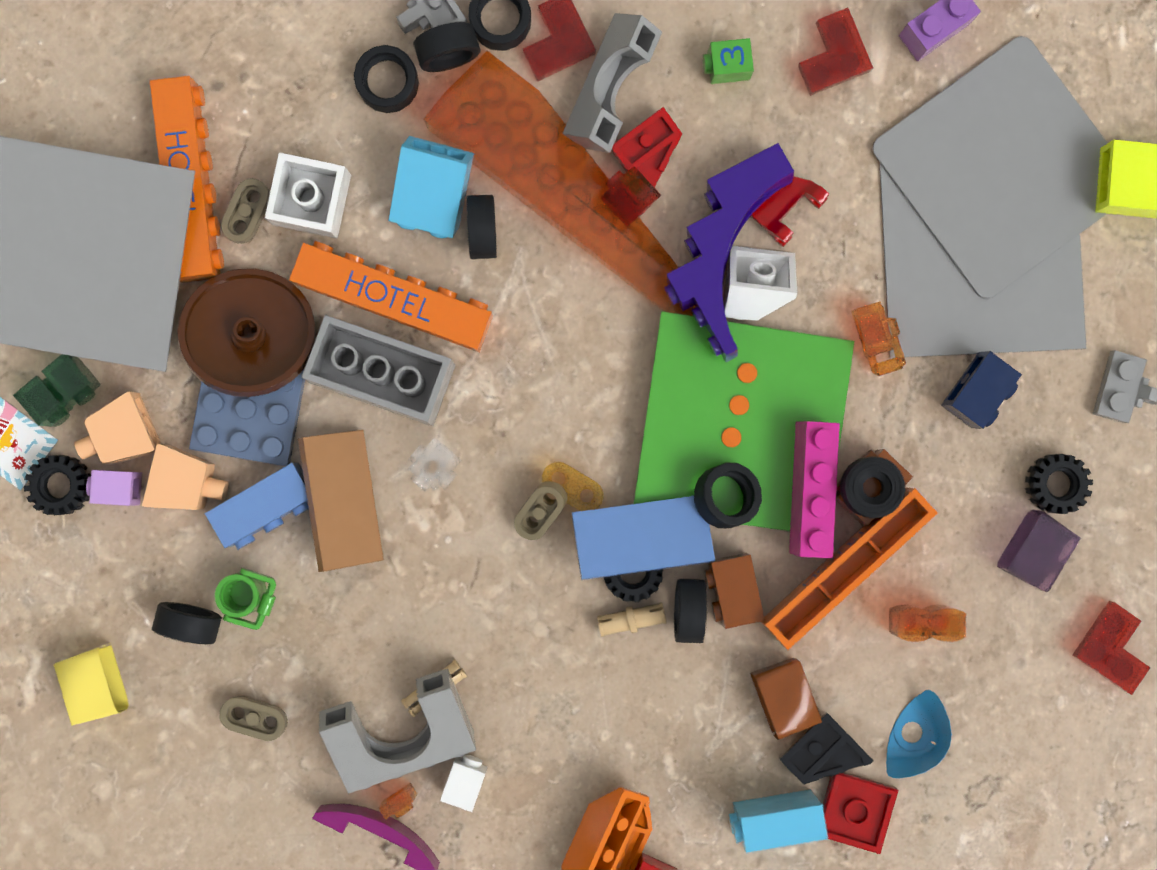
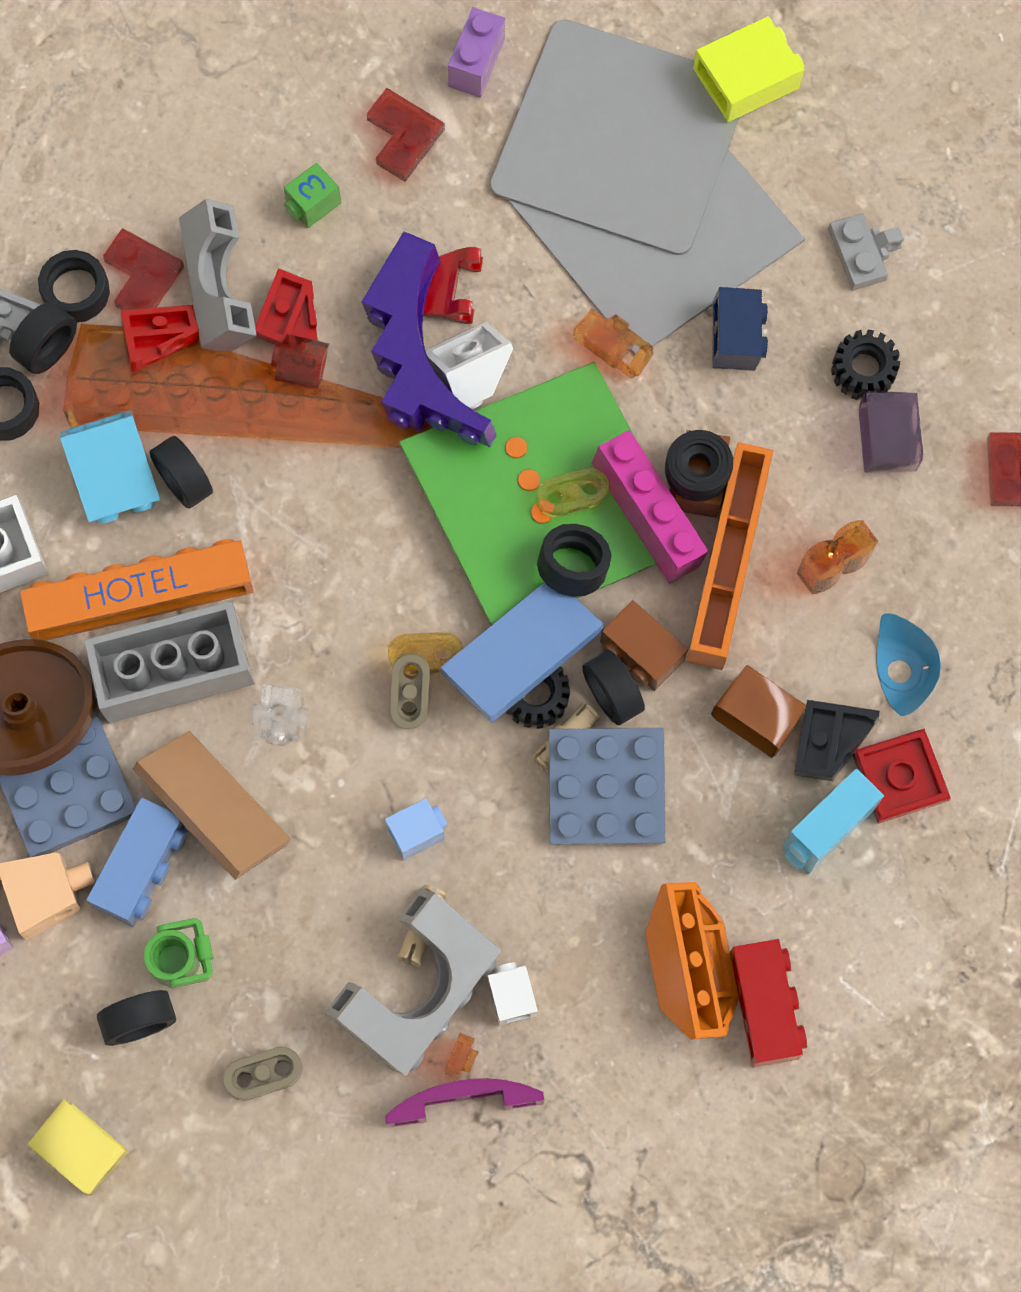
camera: 30 degrees left, 15 degrees down
(477, 615) = (416, 828): none -> light blue brick
(536, 100) = (157, 333): none -> red wing
(636, 678) = (606, 785): none -> sand blue plate
(763, 437) = (570, 492): none -> clear yellow plate

